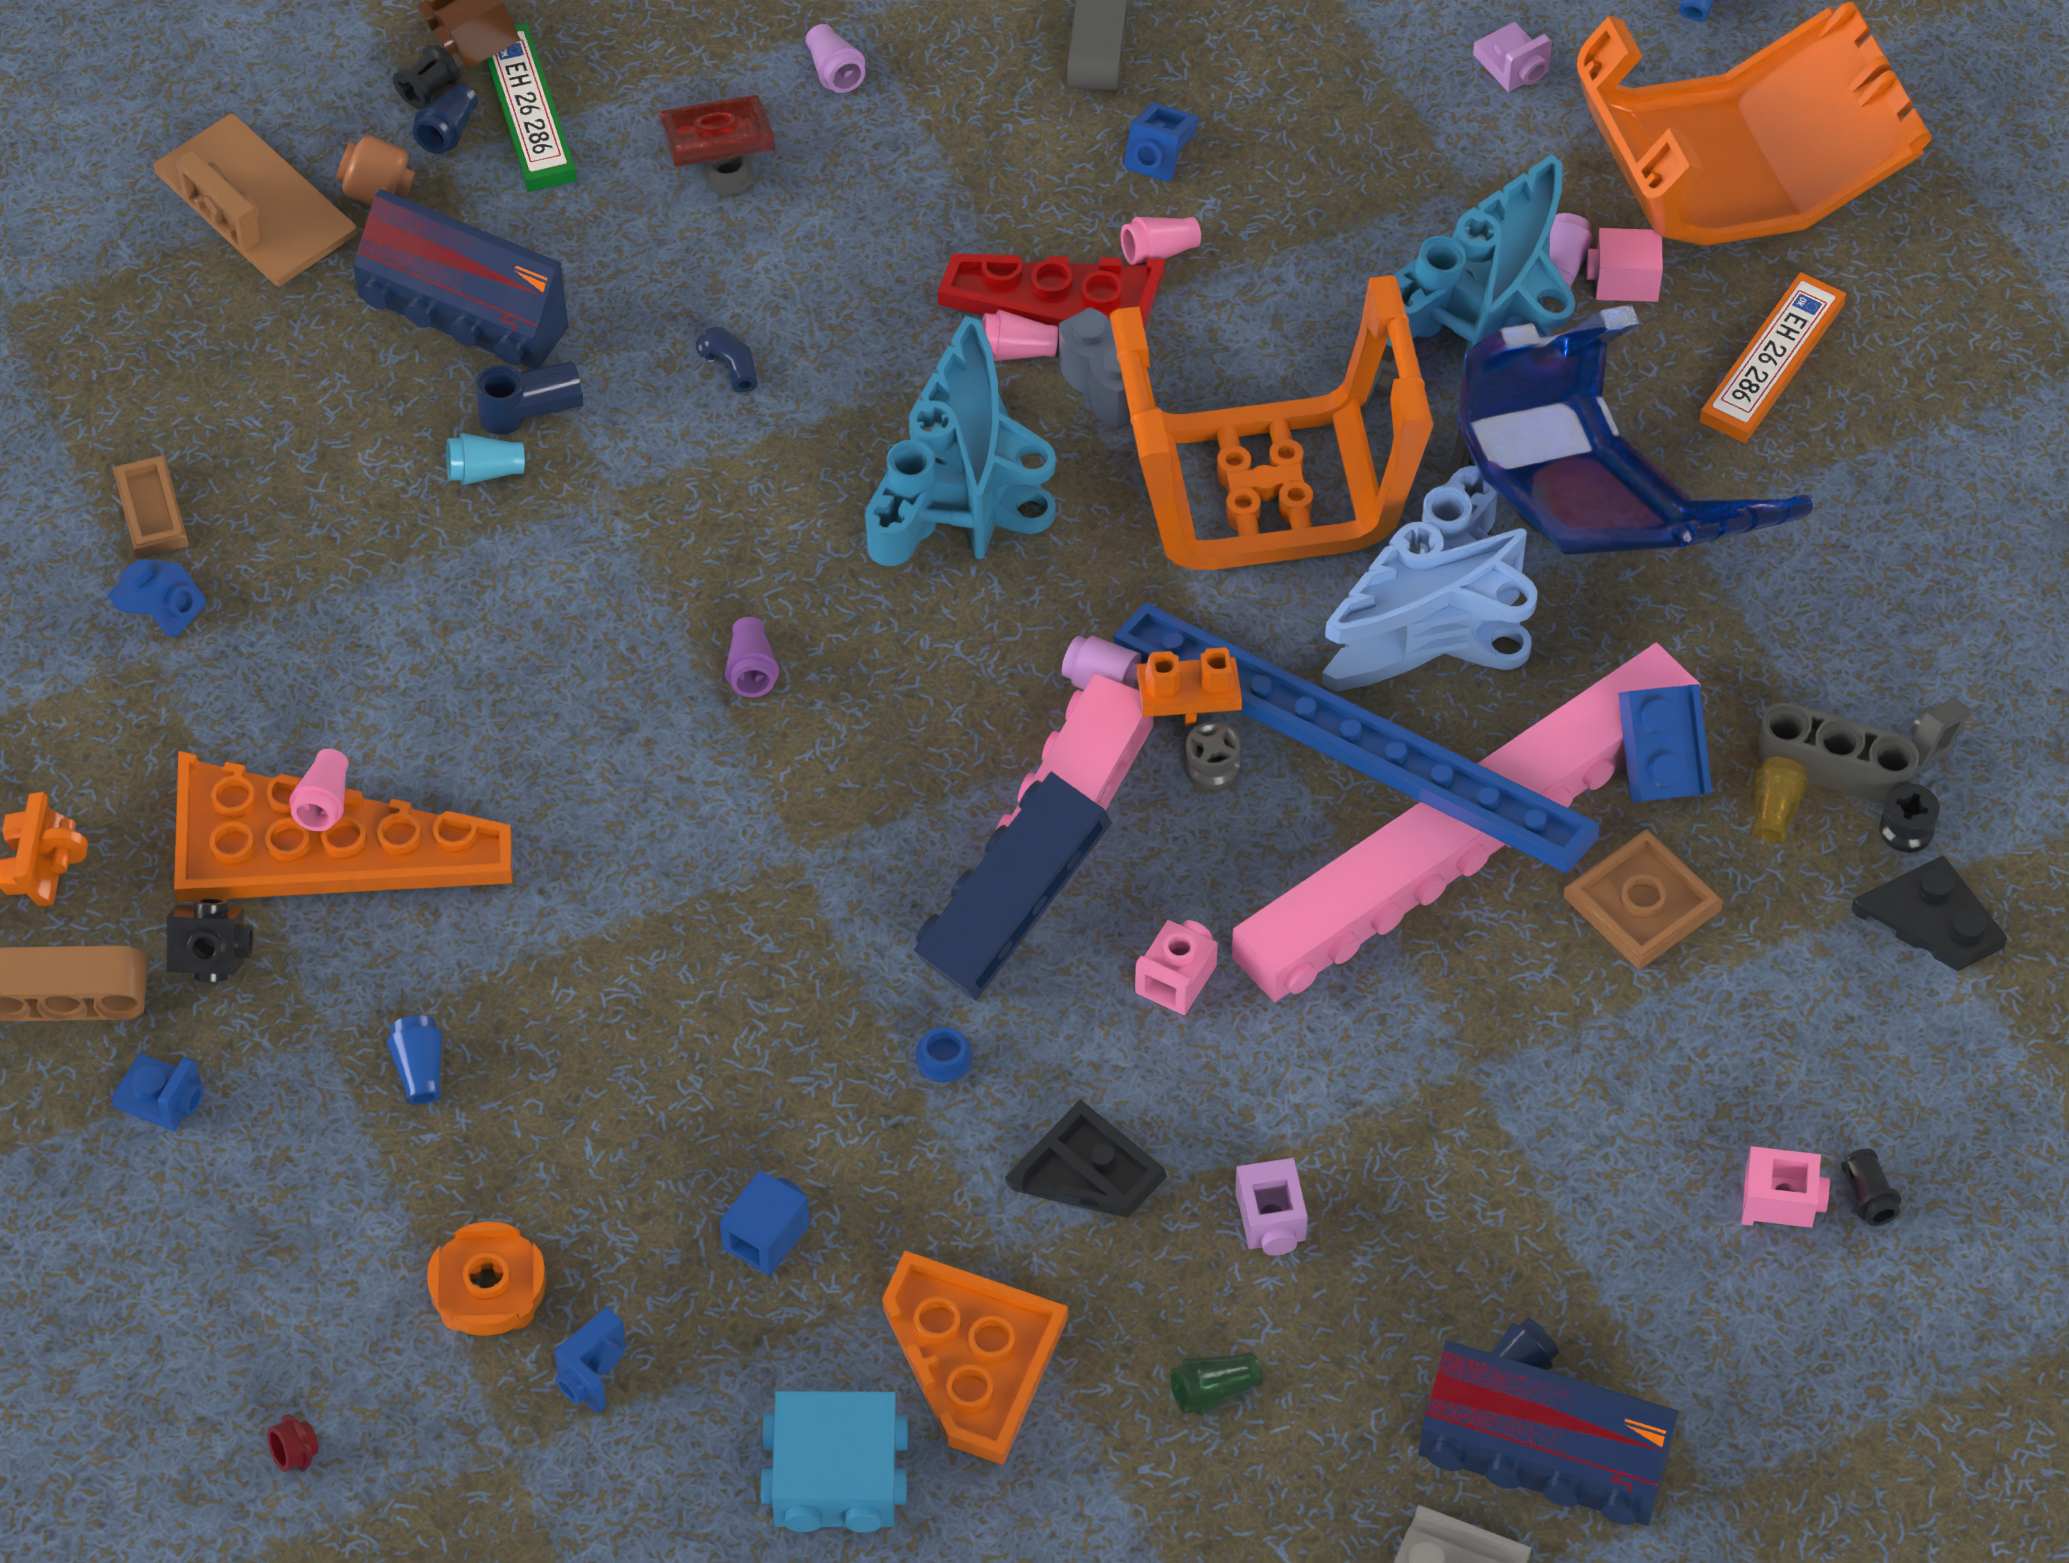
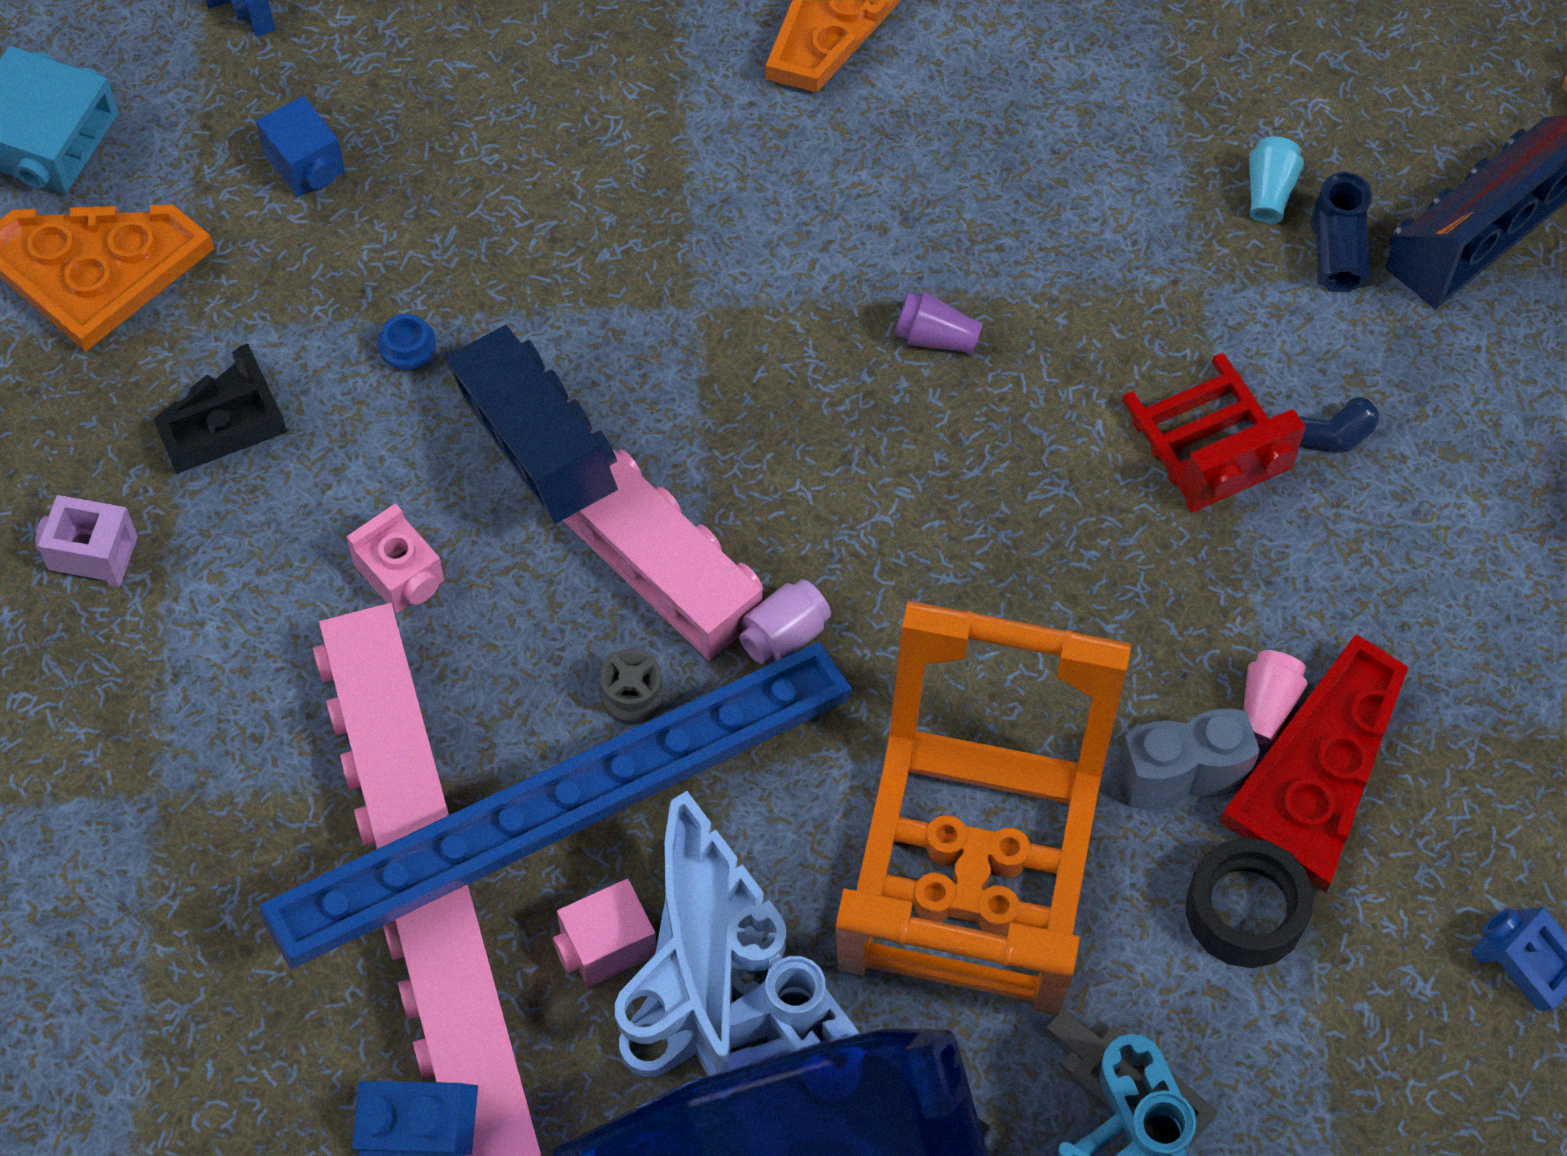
camera: 110 degrees right, 5 degrees up
(800, 407) = (1228, 463): none -> red plate
(963, 468) = (1102, 577): dark azure piece -> none
(1158, 238) = (1371, 895): bright pink cone -> none
(1190, 685) = (697, 661): orange hips -> none
(1194, 339) = (1271, 862): none -> black tyre
(1437, 693) = (604, 934): none -> bright pink brick
(1643, 899) = (258, 1049): medium nougat tile -> none

